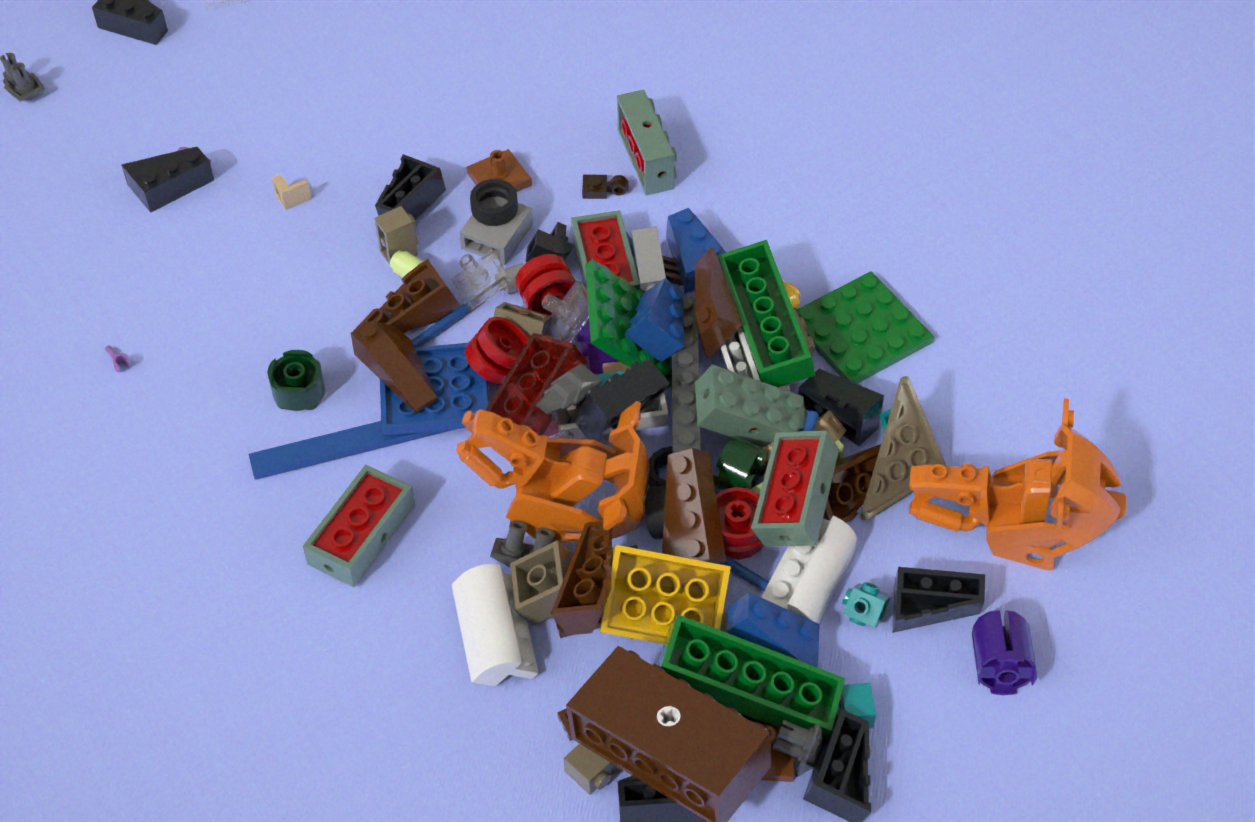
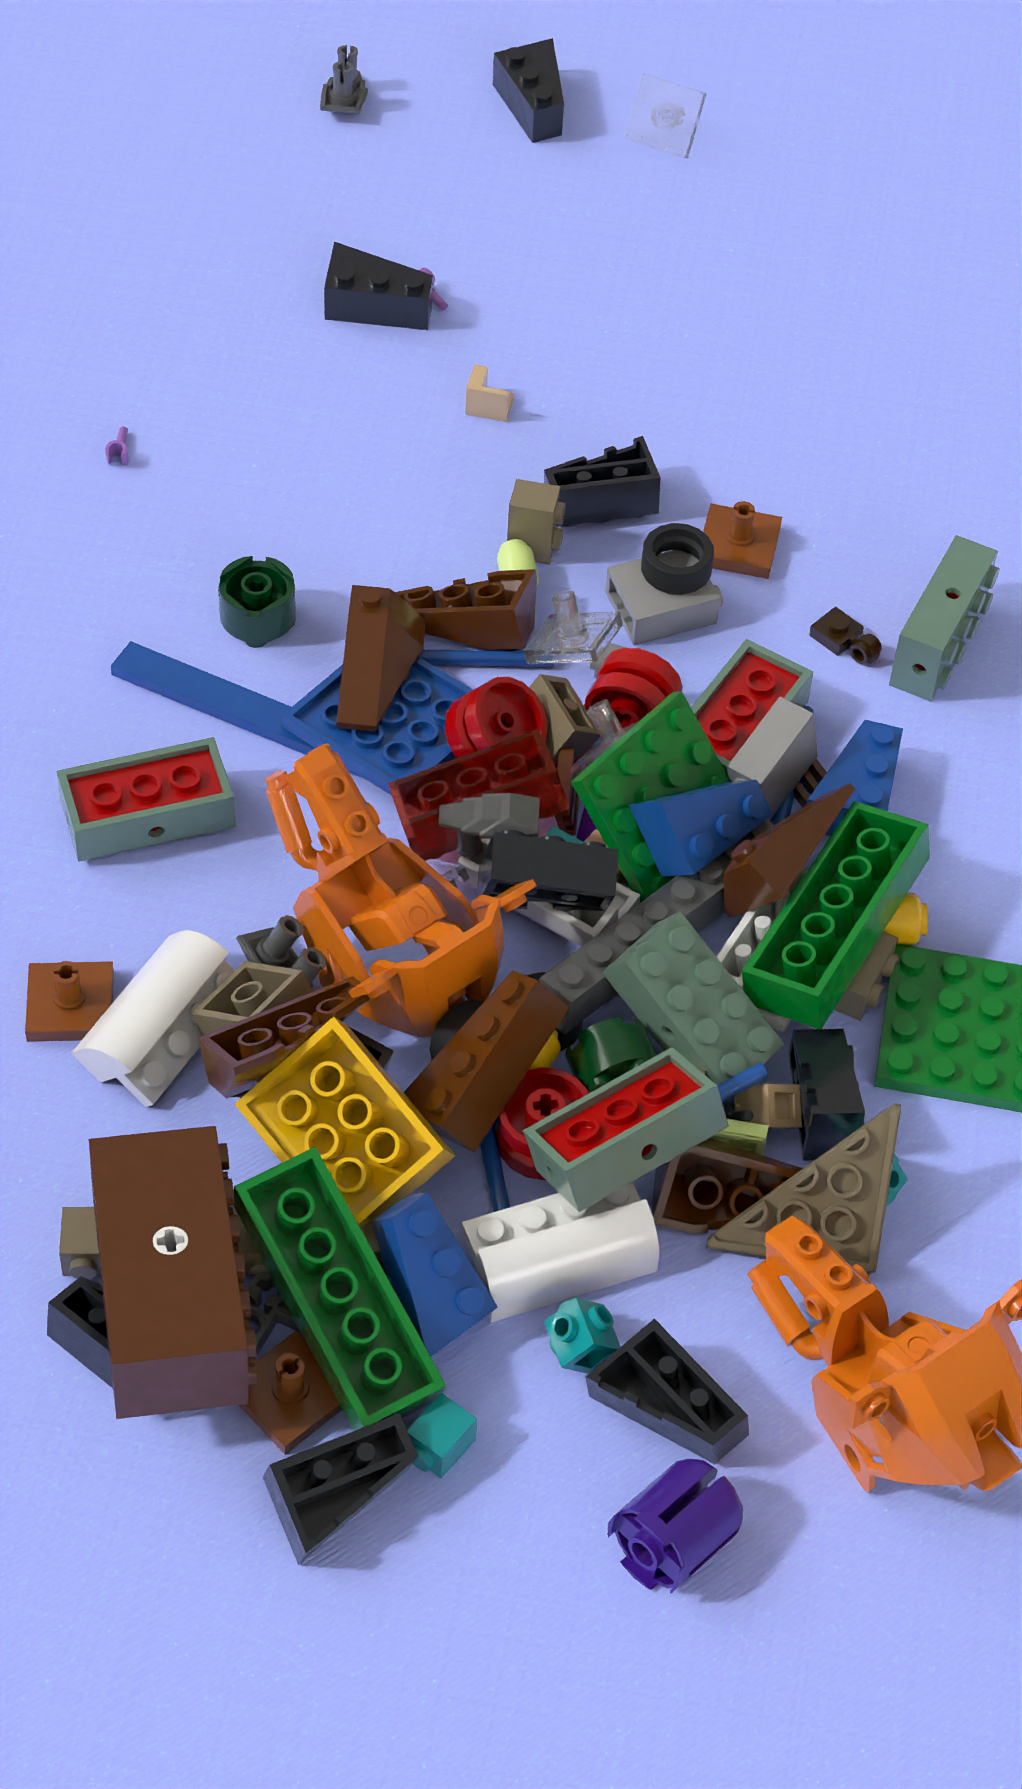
camera: 40 degrees right, 0 degrees up
(432, 659) = (66, 999): none -> dark orange tile
(552, 243) = (691, 658): black brick -> none
(799, 743) = (321, 1415): dark grey connector -> none

